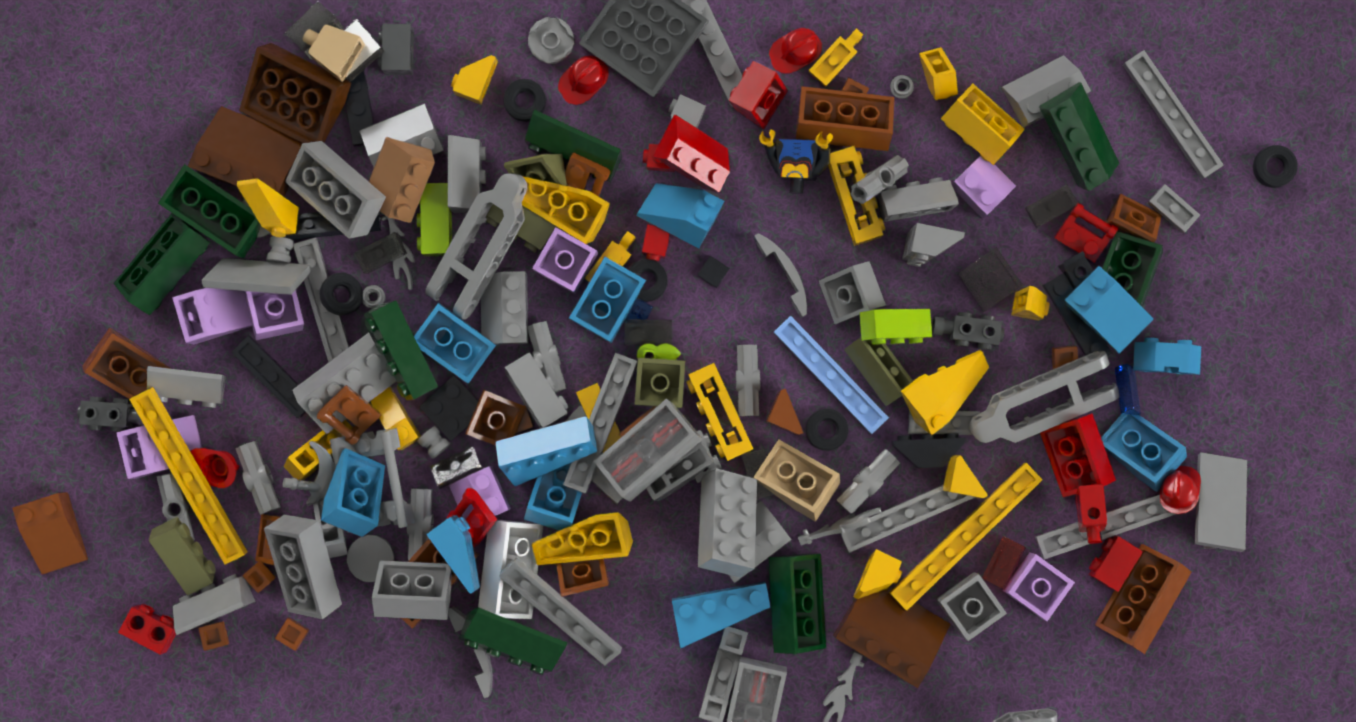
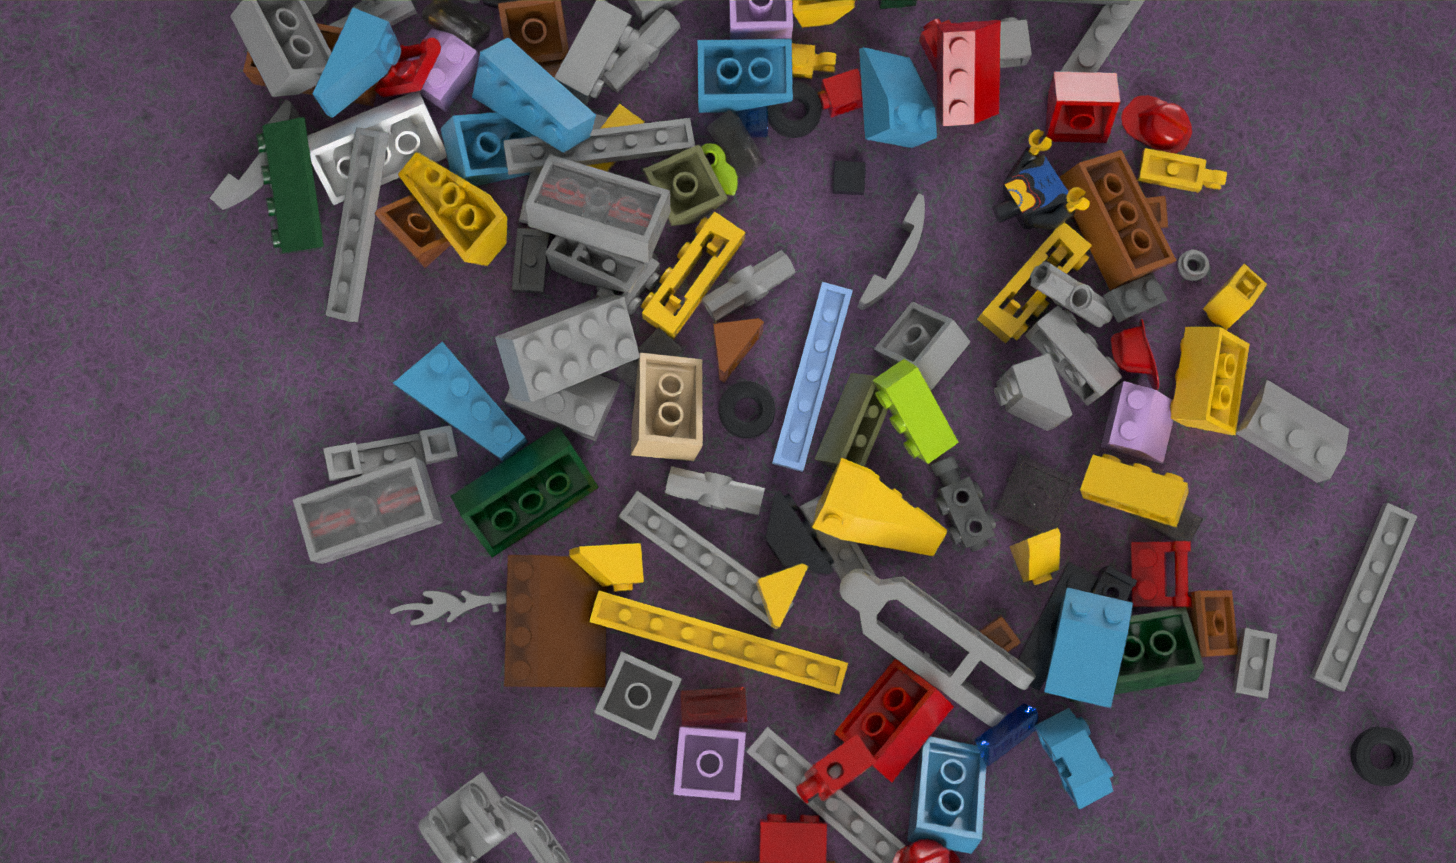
camera: 55 degrees right, 5 degrees down
(648, 512) = (530, 261): none -> dark grey plate
(838, 527) = (653, 495): light grey piece -> none
(903, 138) = (1135, 297): none -> dark grey plate
(938, 163) = (1134, 353): none -> red piece
(1025, 216) = (1135, 489): none -> yellow brick
(1080, 137) = (1269, 498): dark green slope -> none

